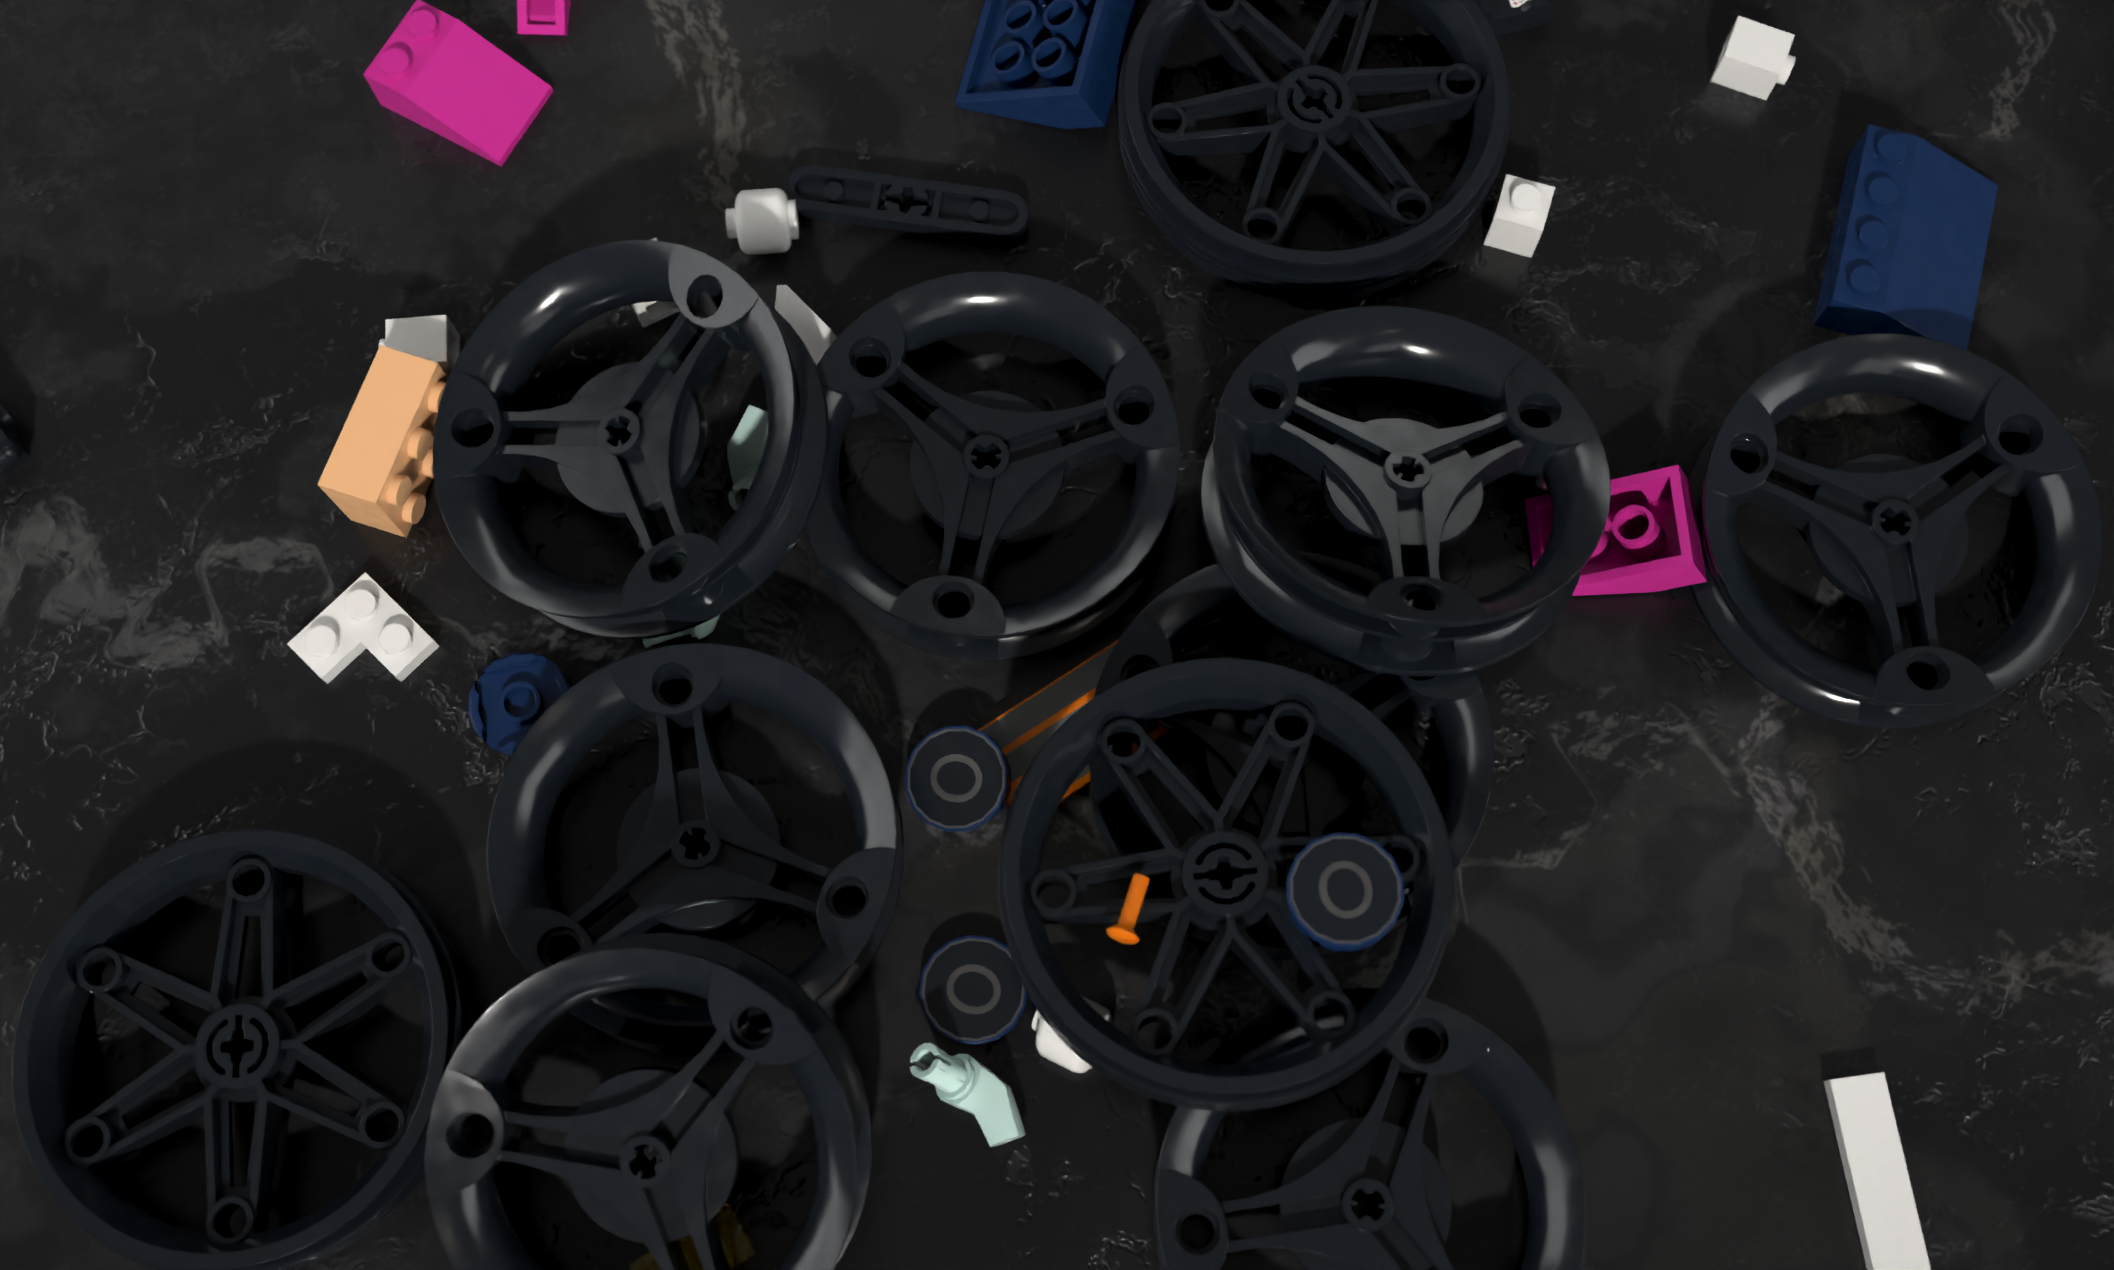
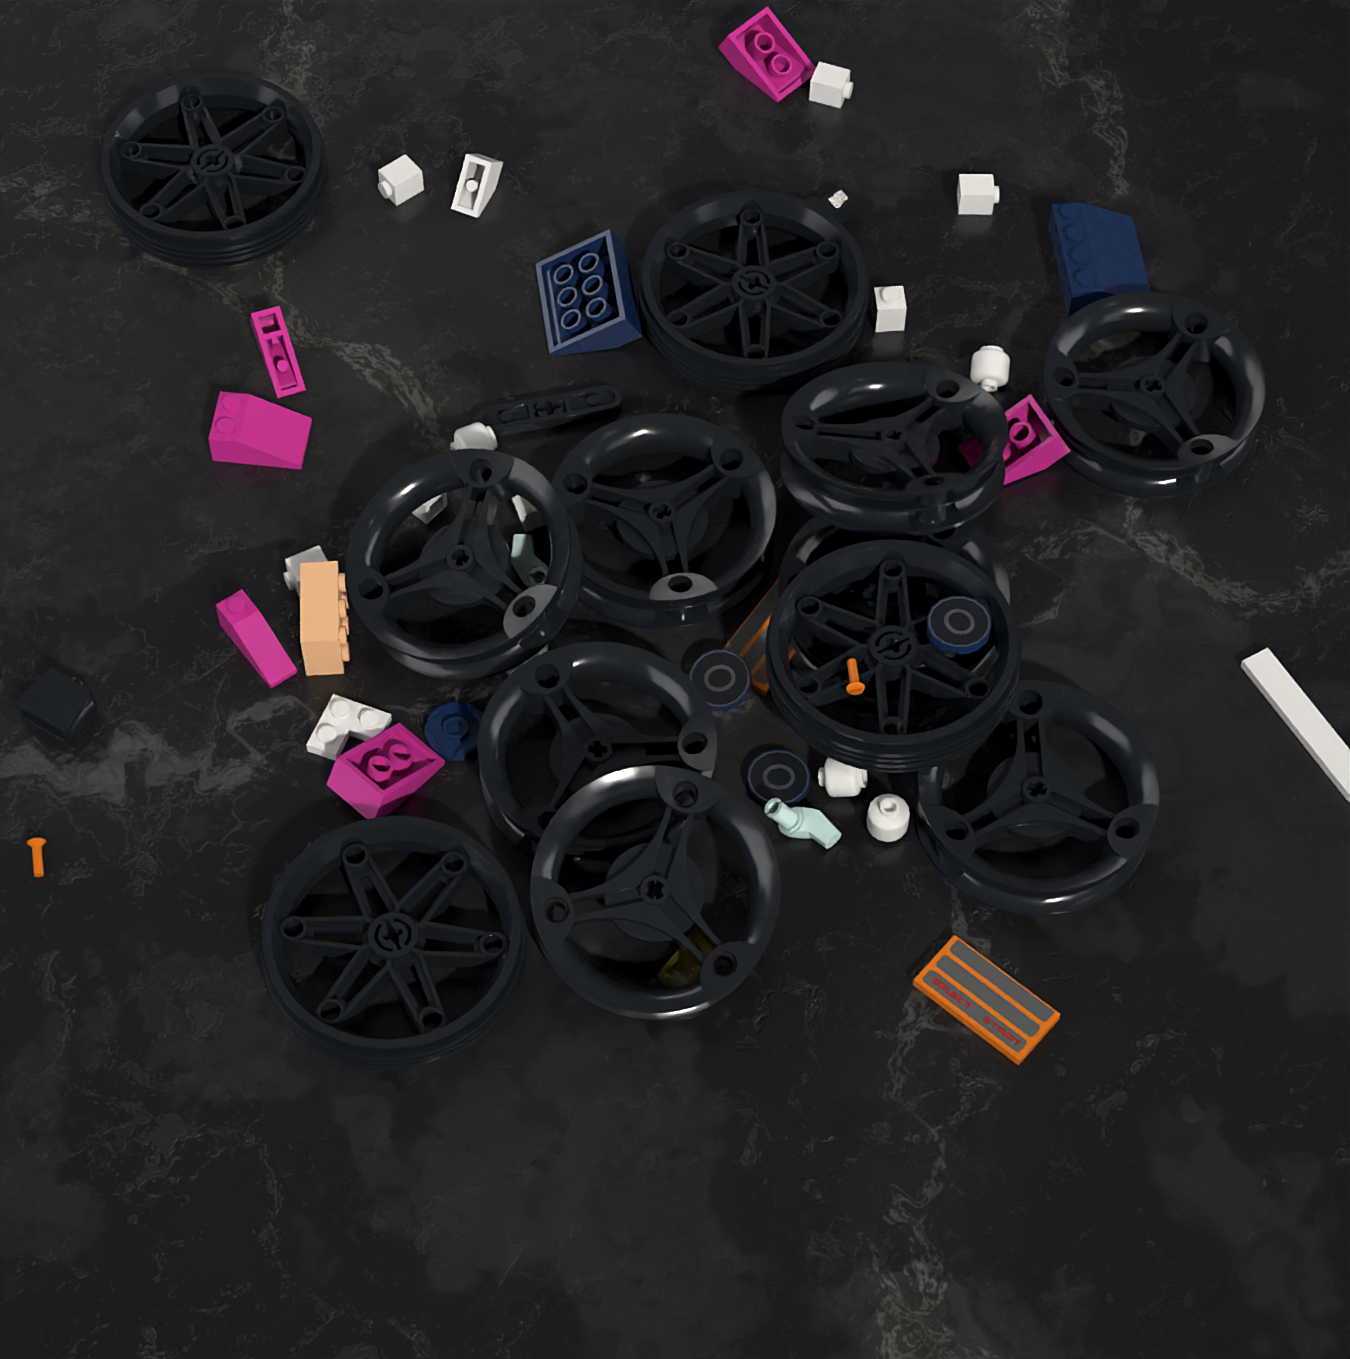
camera: 25 degrees left, 15 degrees down
(291, 430) = (254, 638): none -> dark pink slope
(378, 737) = (383, 771): none -> dark pink slope
(1110, 1140) = (888, 817): none -> white head
(1638, 381) = (990, 368): none -> white head

